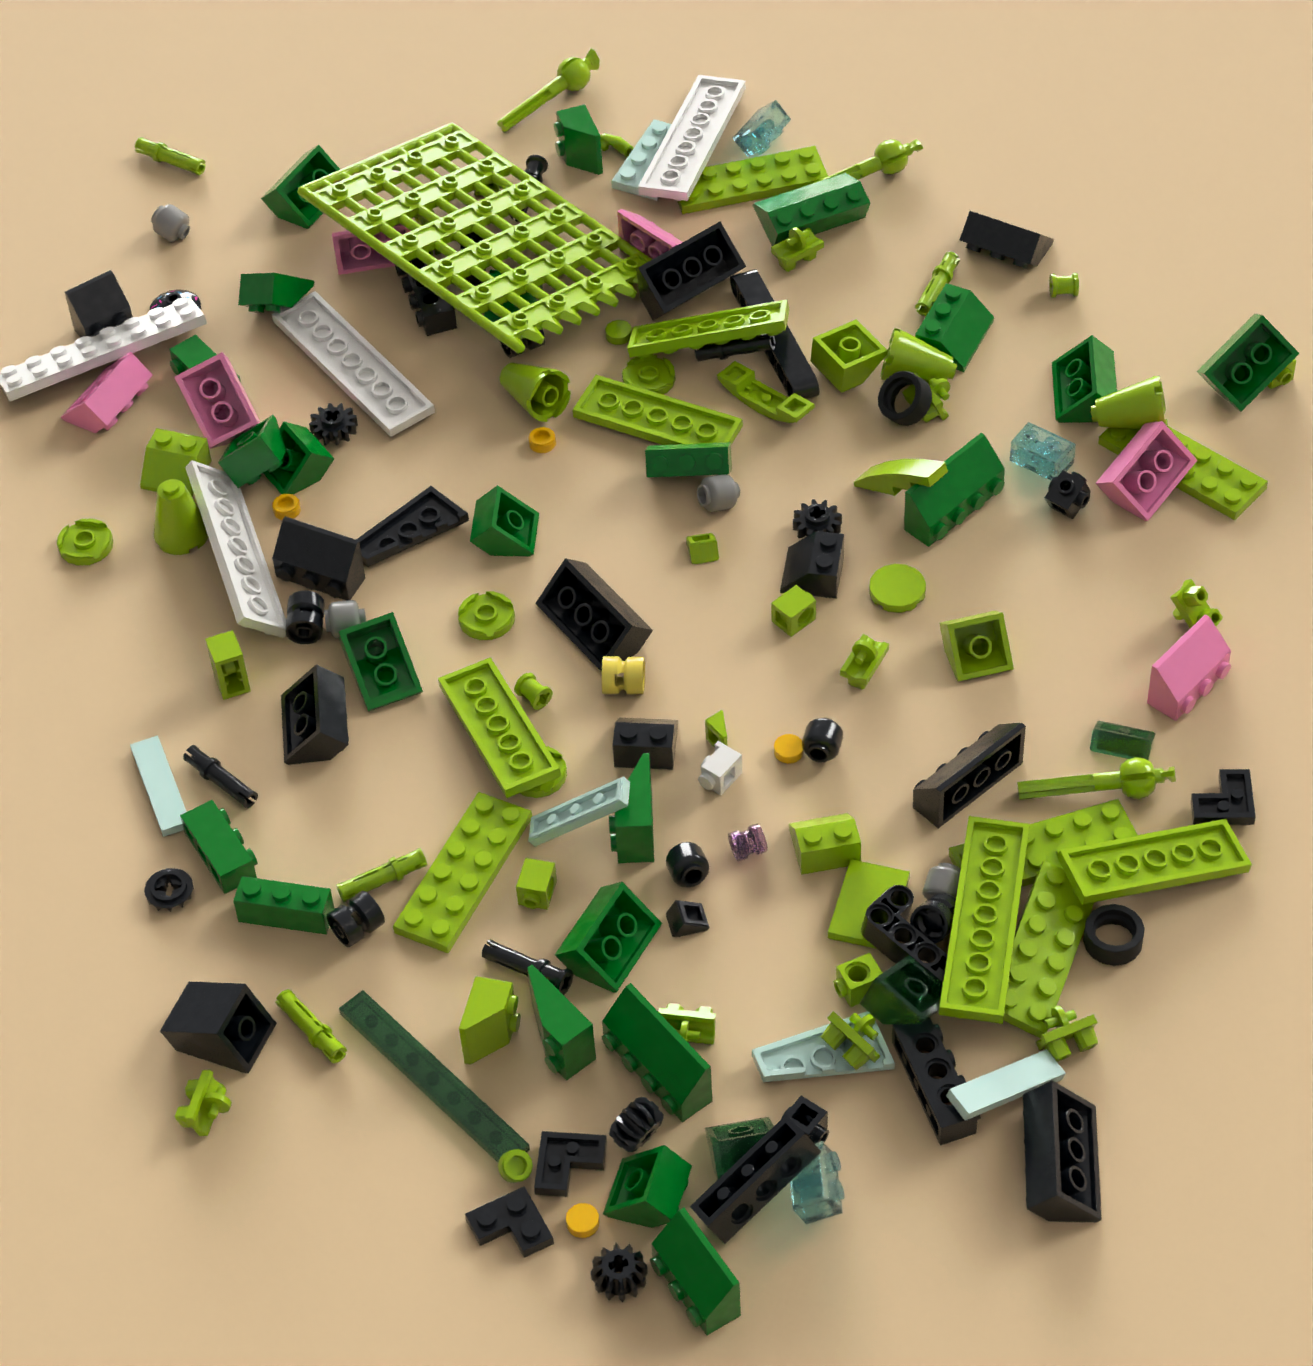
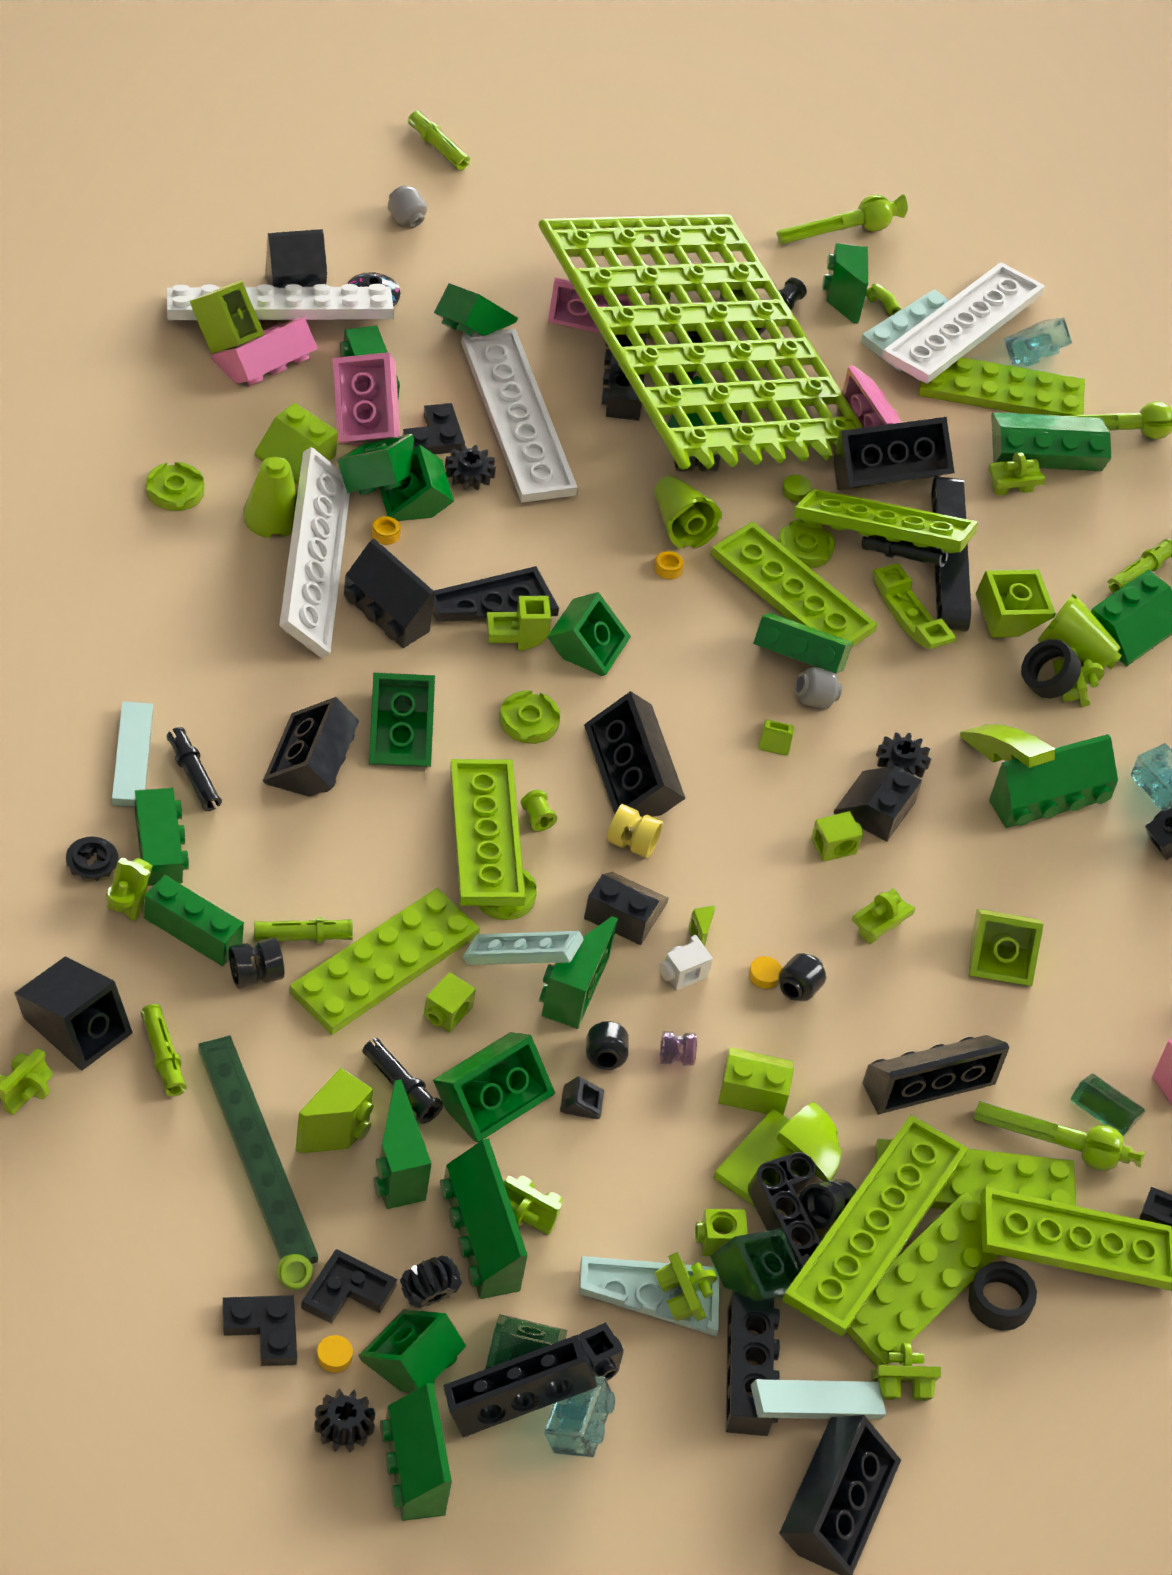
camera: 10 degrees right, 0 degrees up
(62, 378) = (227, 317): none -> lime slope
(215, 899) = (129, 887): none -> lime hips
(228, 664) = (251, 662): lime brick -> none
(283, 195) = (567, 204): green slope -> none
(293, 403) = (441, 430): none -> black plate
(305, 617) = (350, 646): black wheel -> none
(343, 615) = (387, 659): light grey head -> none
(447, 540) = (525, 627): none -> lime brick
(897, 587) = (953, 856): lime tile -> none
(897, 866) = (816, 1135): none -> lime brick
(942, 880) = (853, 1167): light grey head -> none

